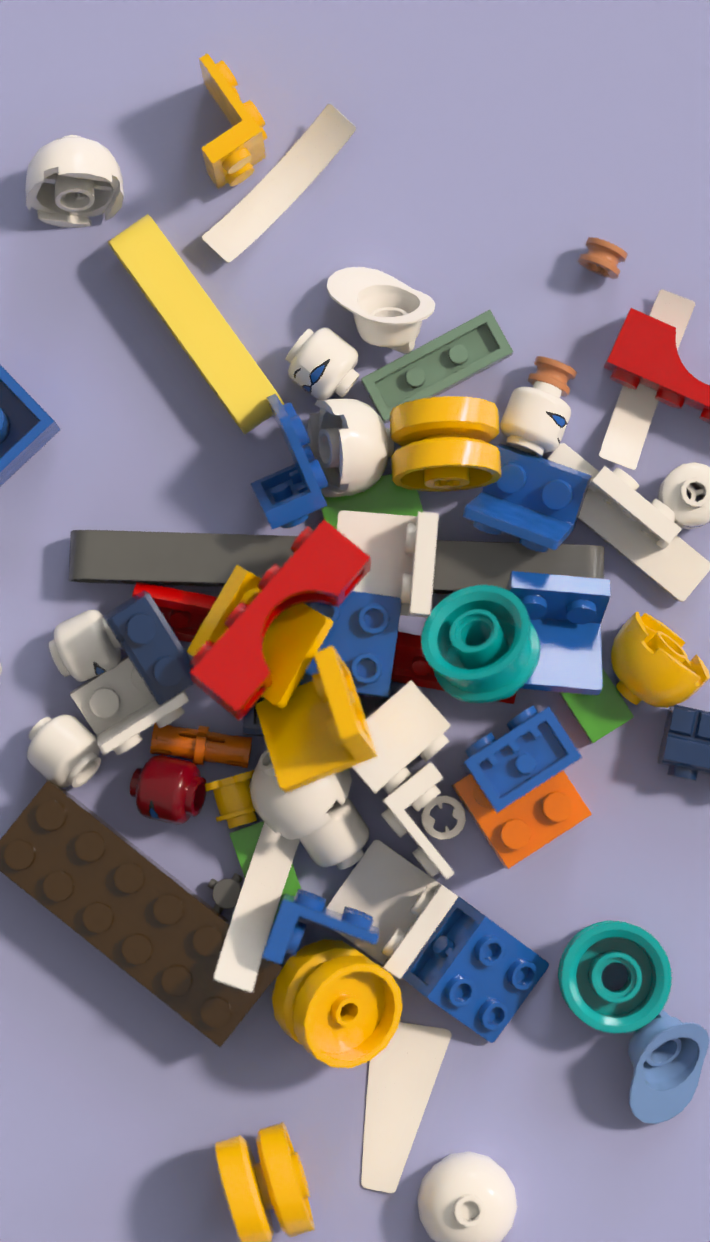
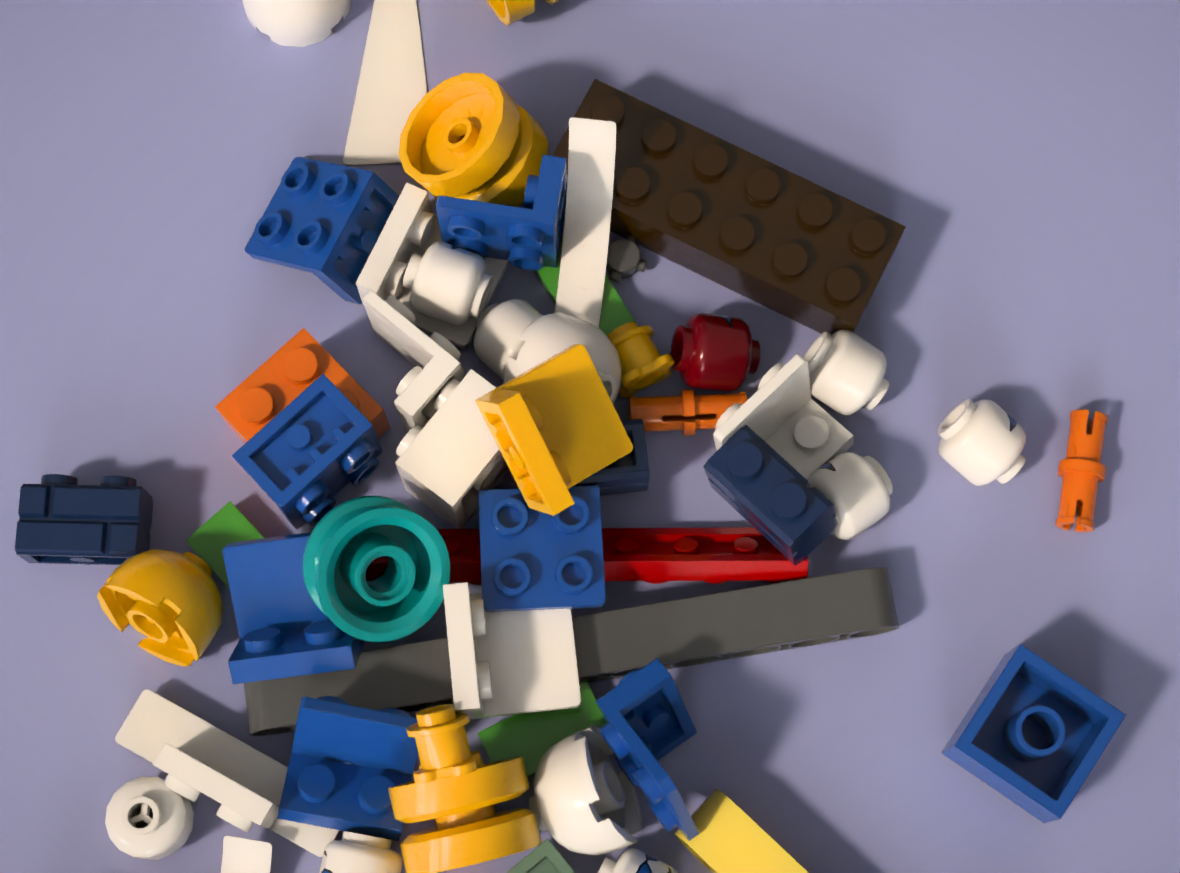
camera: 170 degrees right, 10 degrees down
(288, 641) = (642, 528): yellow bracket -> none
(320, 571) = (663, 470): red arch -> none
(380, 887) = (448, 283): none -> white head
(452, 489) = (442, 744): none -> yellow brick
(458, 813) = (382, 369): white bush -> none
(646, 984) = (160, 208): teal wheel -> none
(666, 1067) = (96, 163): medium blue piece -> none

